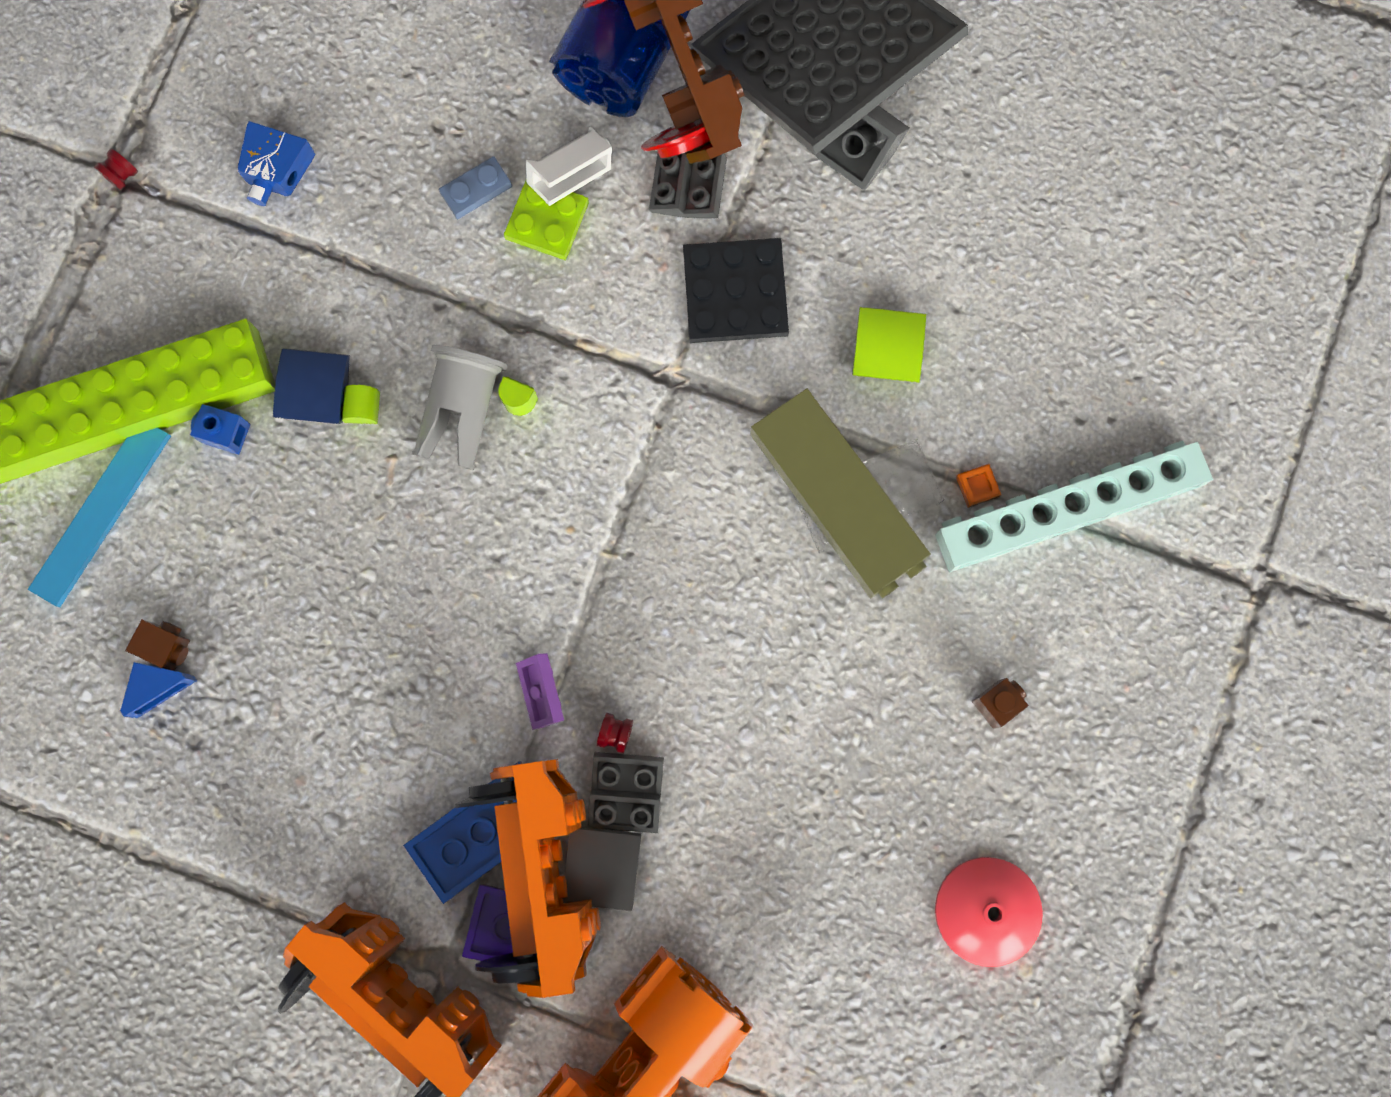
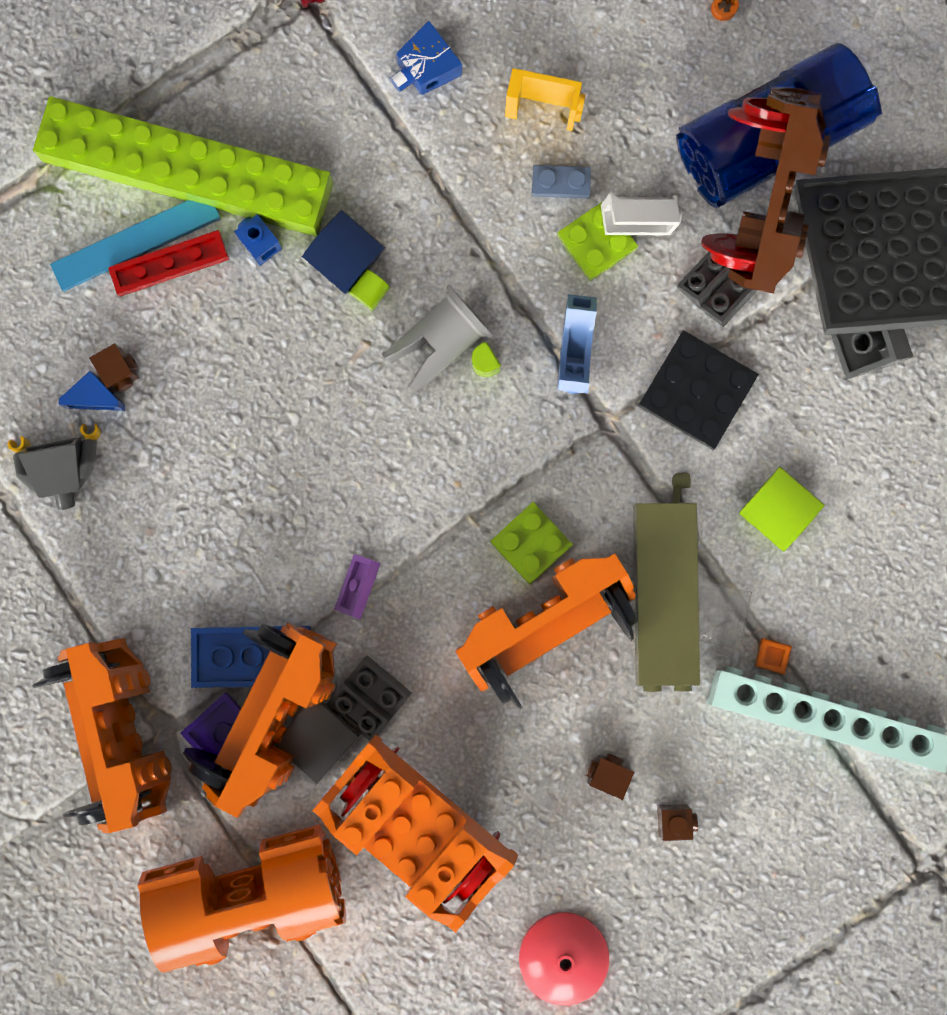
camera: 35 degrees right, 5 degrees up
(146, 510) = (168, 263): none -> red plate
(162, 778) = (56, 466): none -> dark grey torso
(402, 112) = (544, 89): none -> yellow panel
(591, 321) = (577, 344): none -> medium blue arch
(614, 733) = (389, 652): dark red wheel -> none
(678, 536) = (531, 543): none -> lime plate
(761, 543) = (589, 593): none -> orange piece
(761, 886) = (416, 834): none -> orange piece
(777, 384) = (679, 482): none -> olive hand
(907, 702) = (609, 775): none -> reddish brown brick

